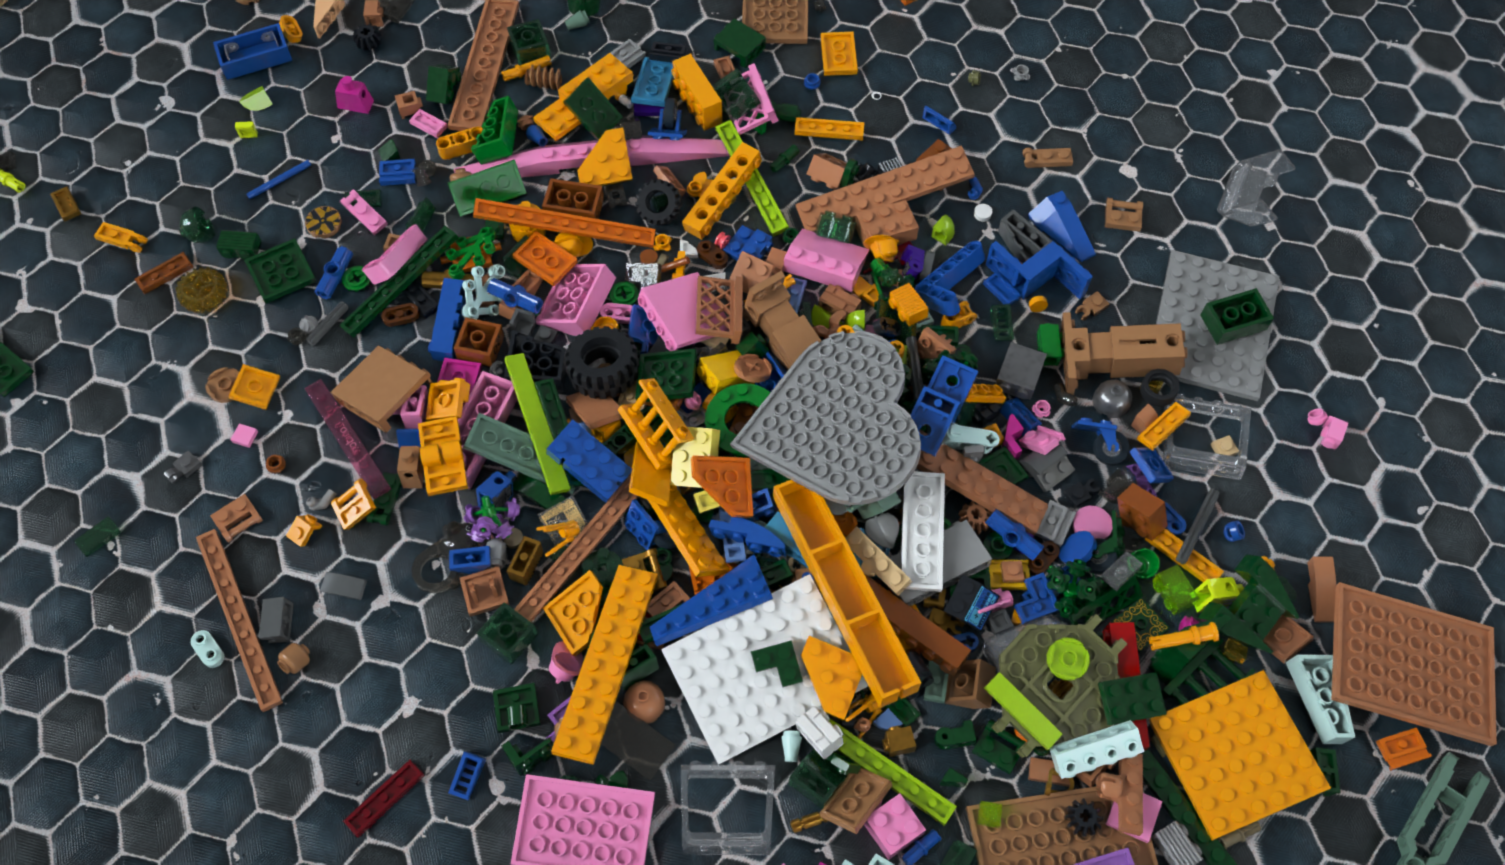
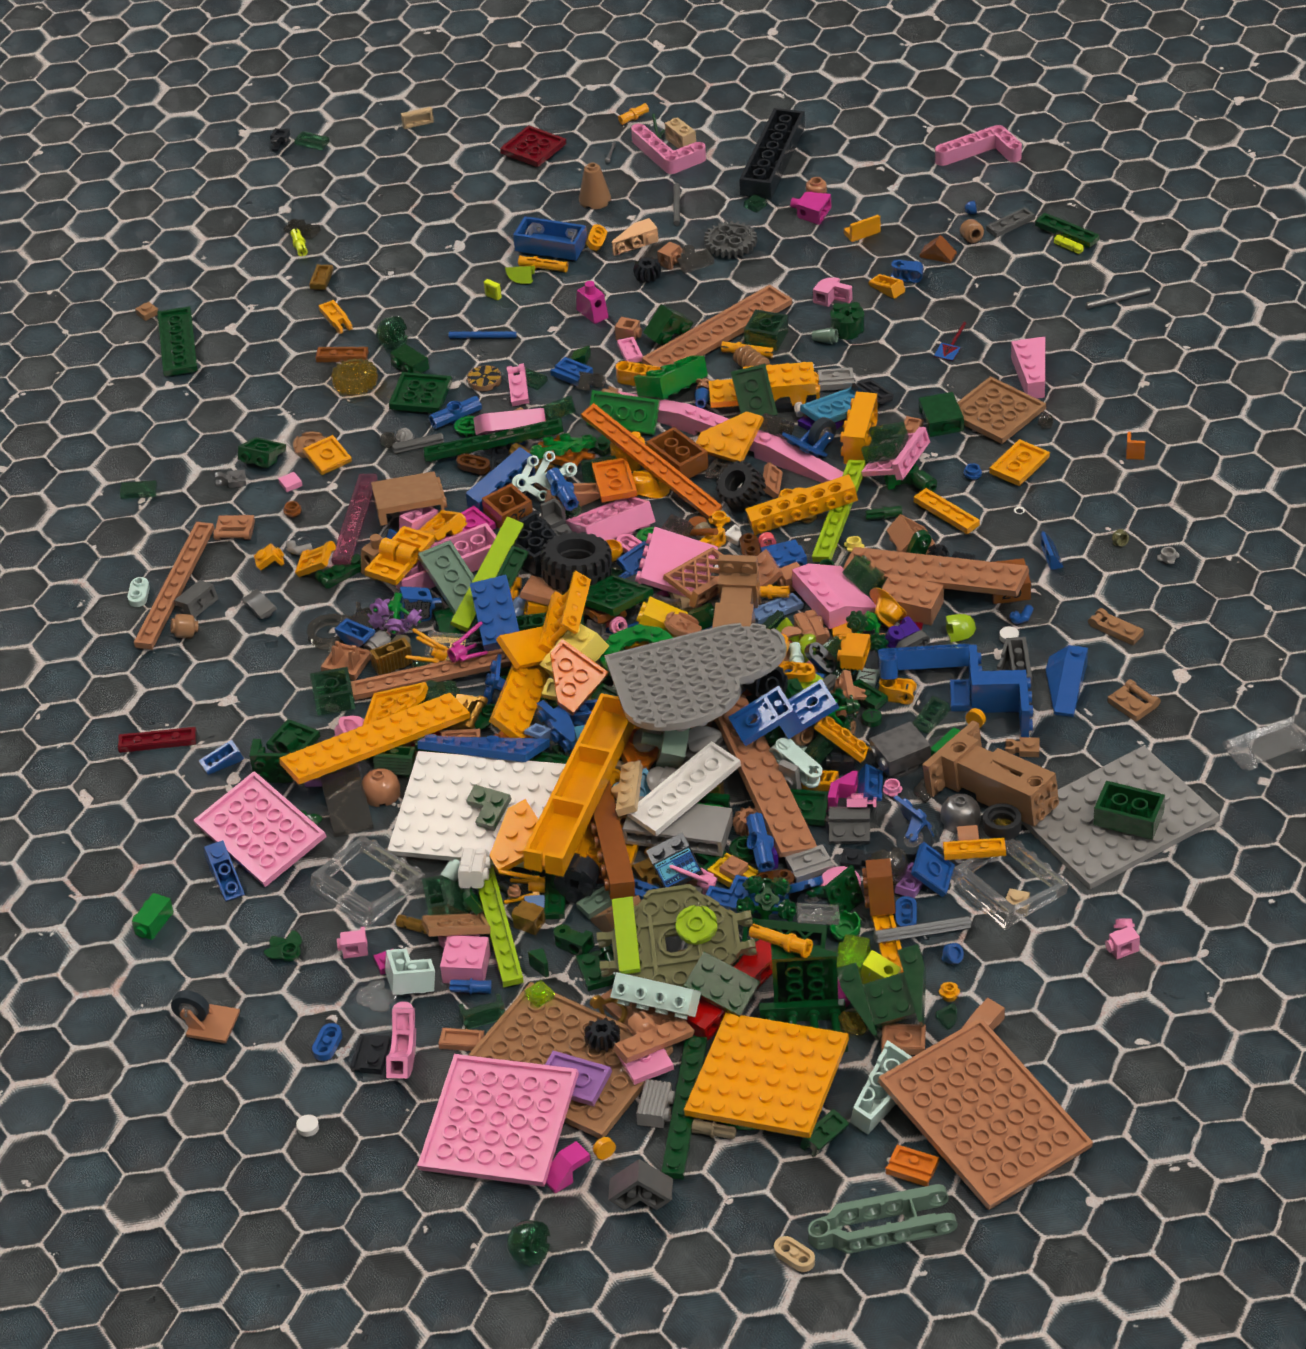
camera: 45 degrees right, 20 degrees down
(186, 422) = (260, 452): none -> dark green plate
(266, 79) = (543, 263): none -> light orange pin
(588, 518) = (459, 652): none -> dark pink plant
(790, 201) = (853, 541): none -> light yellow plate

